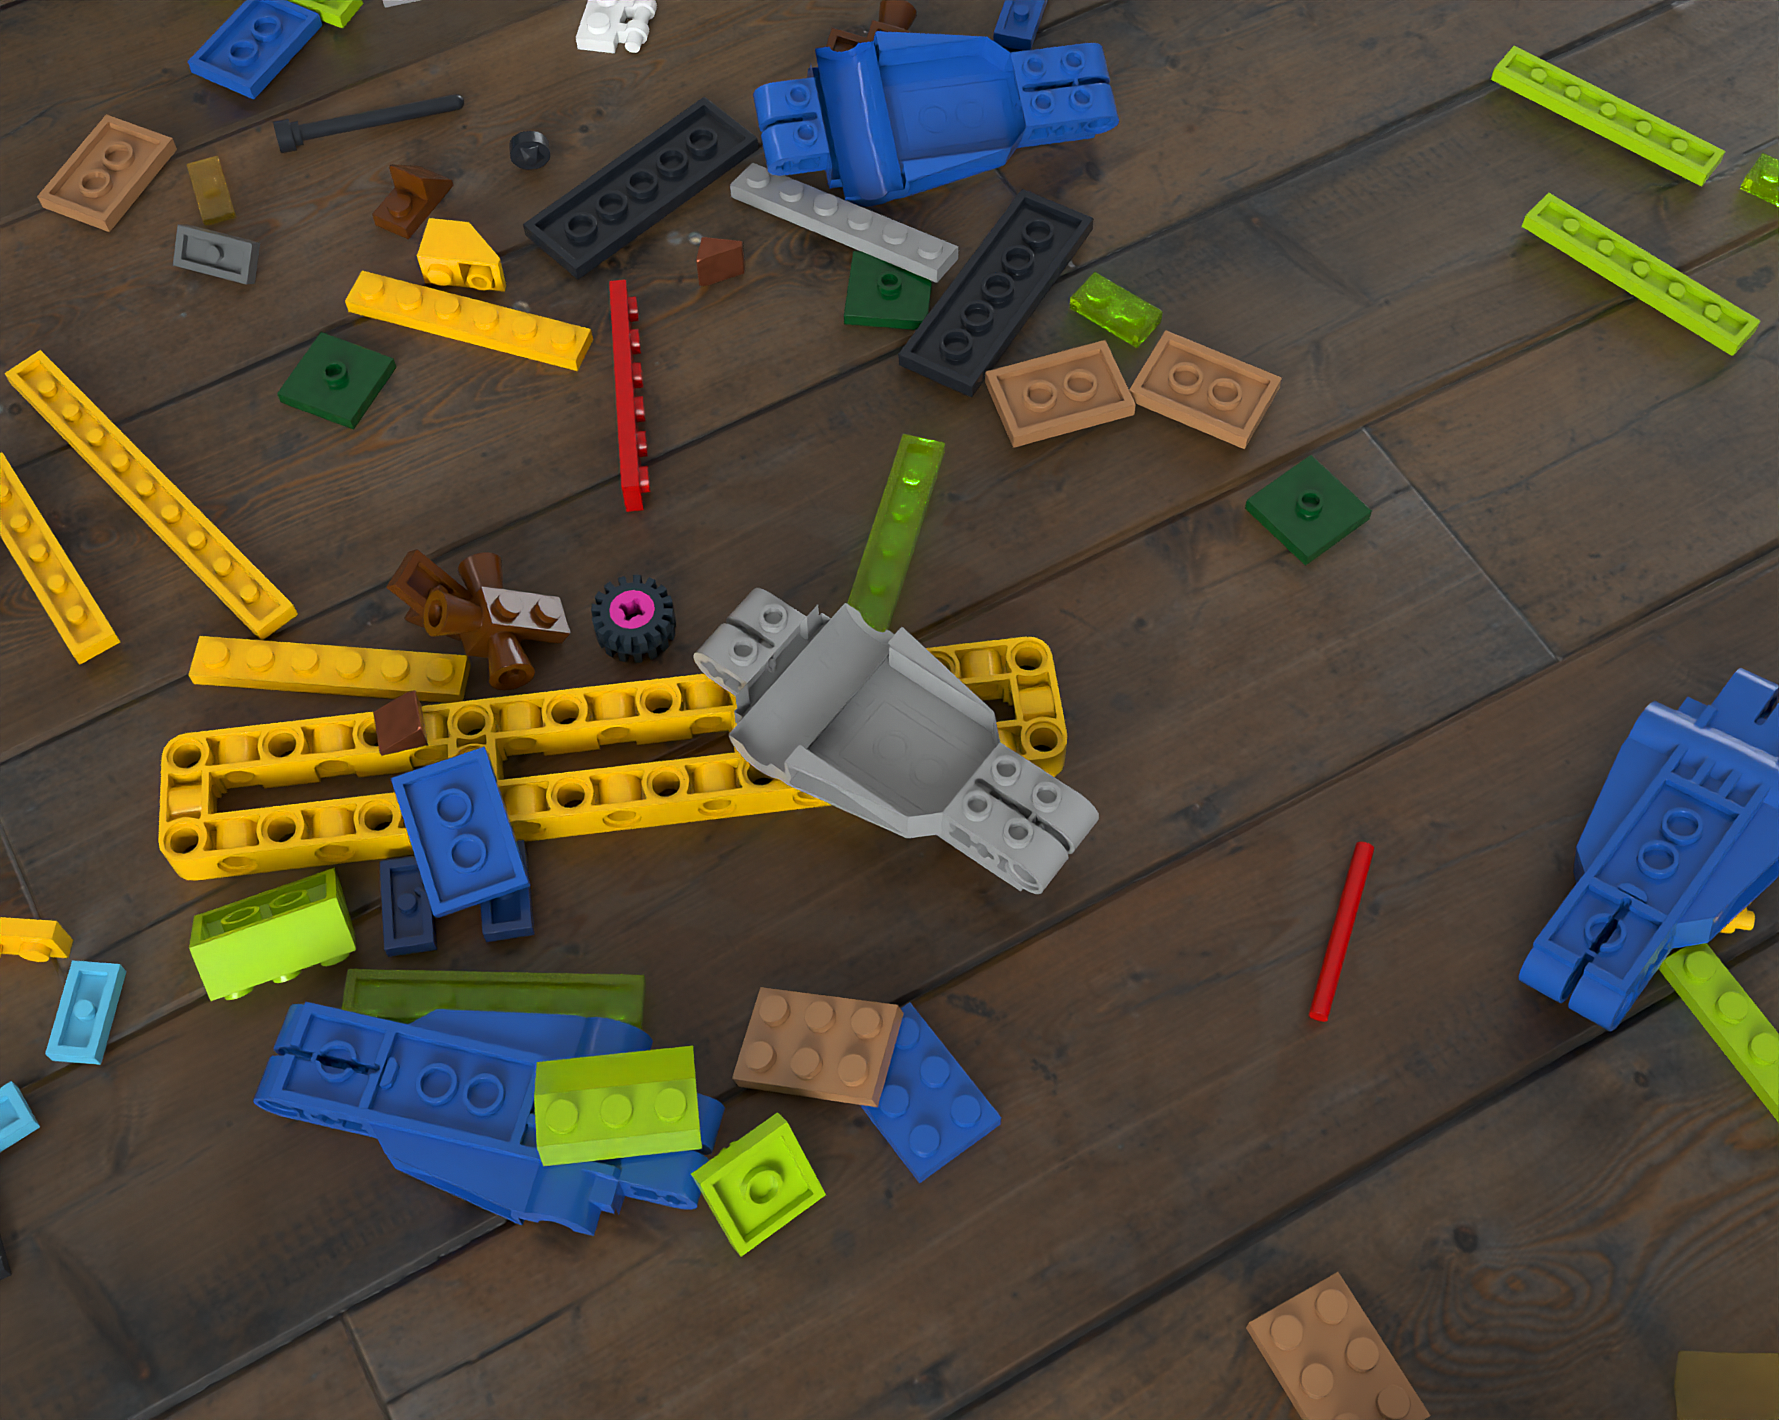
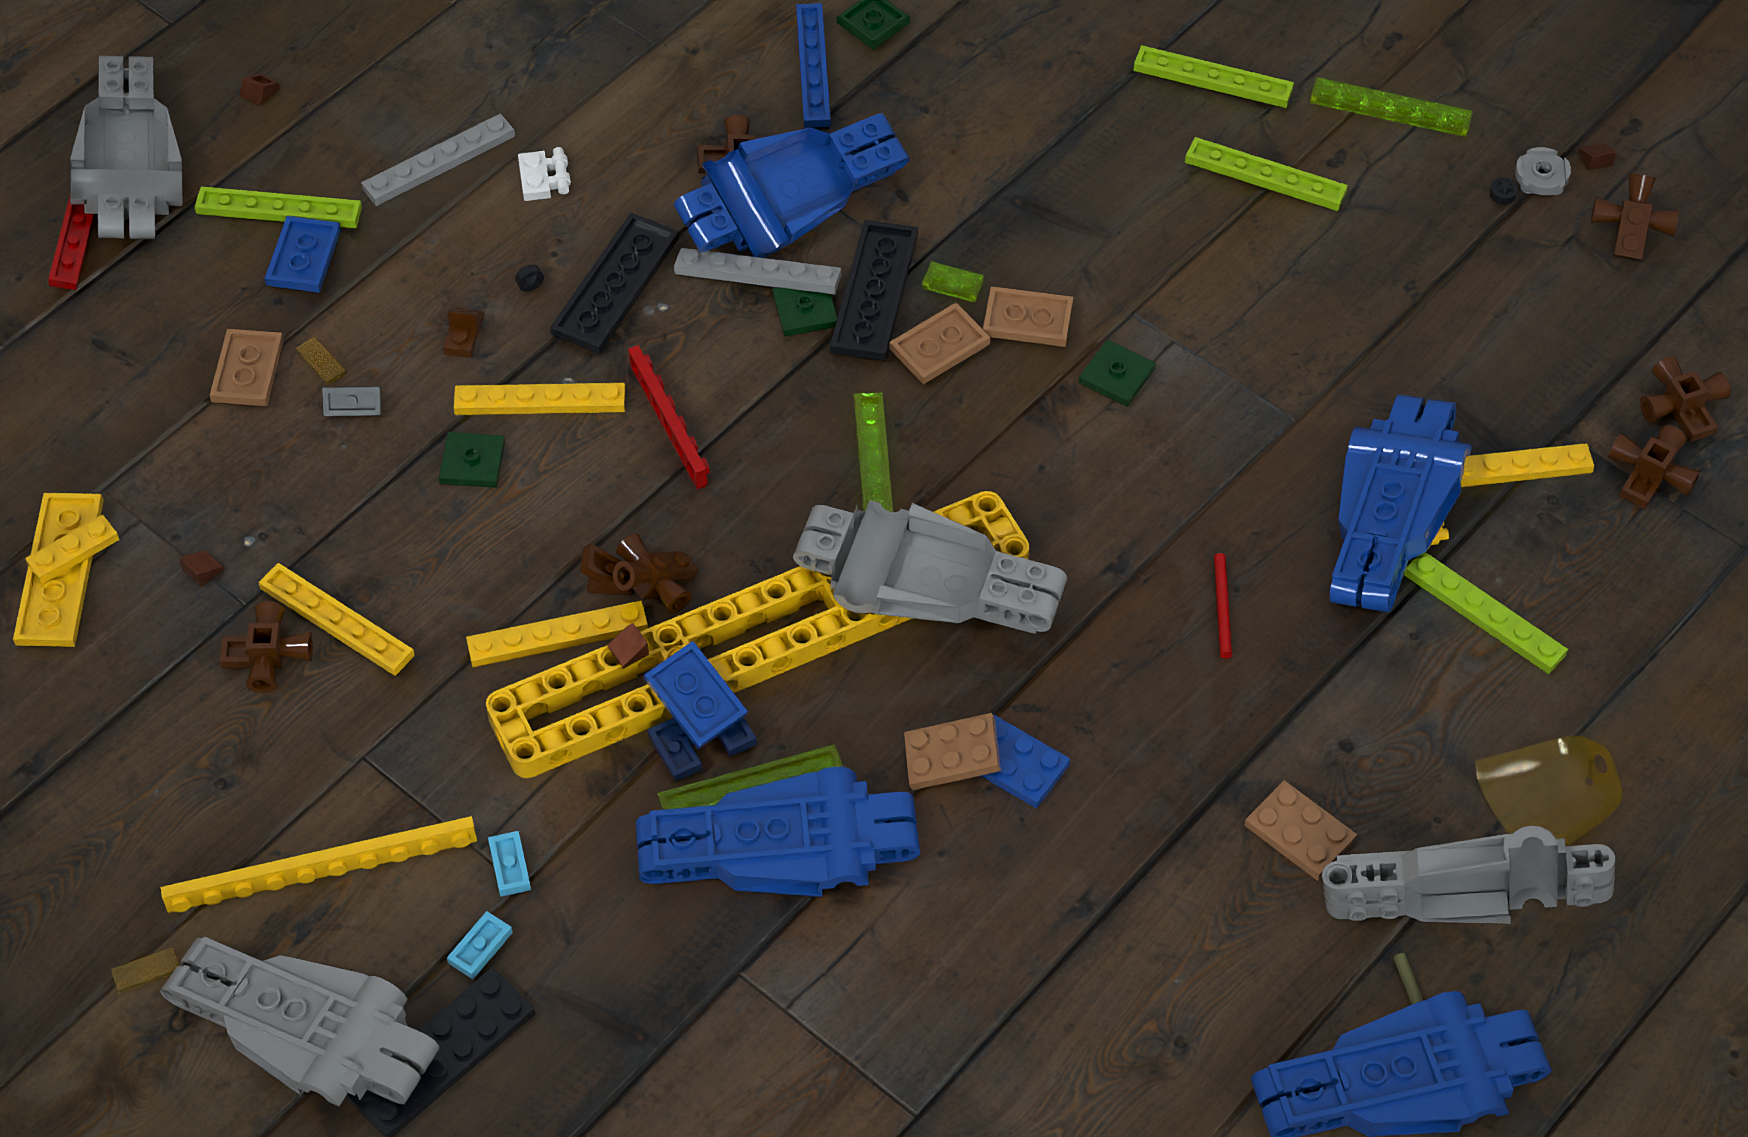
camera: 20 degrees left, 5 degrees down
(152, 496) = (386, 561): yellow plate -> none
(272, 936) = (602, 788): lime slope -> none
(292, 134) = (360, 309): black piece -> none
(458, 256) = (518, 359): yellow slope -> none
(616, 1106) = (861, 807): lime slope -> none
(641, 633) = (745, 551): black wheel -> none
(719, 260) = (689, 316): copper slope -> none
(758, 1184) = (951, 829): lime tile -> none

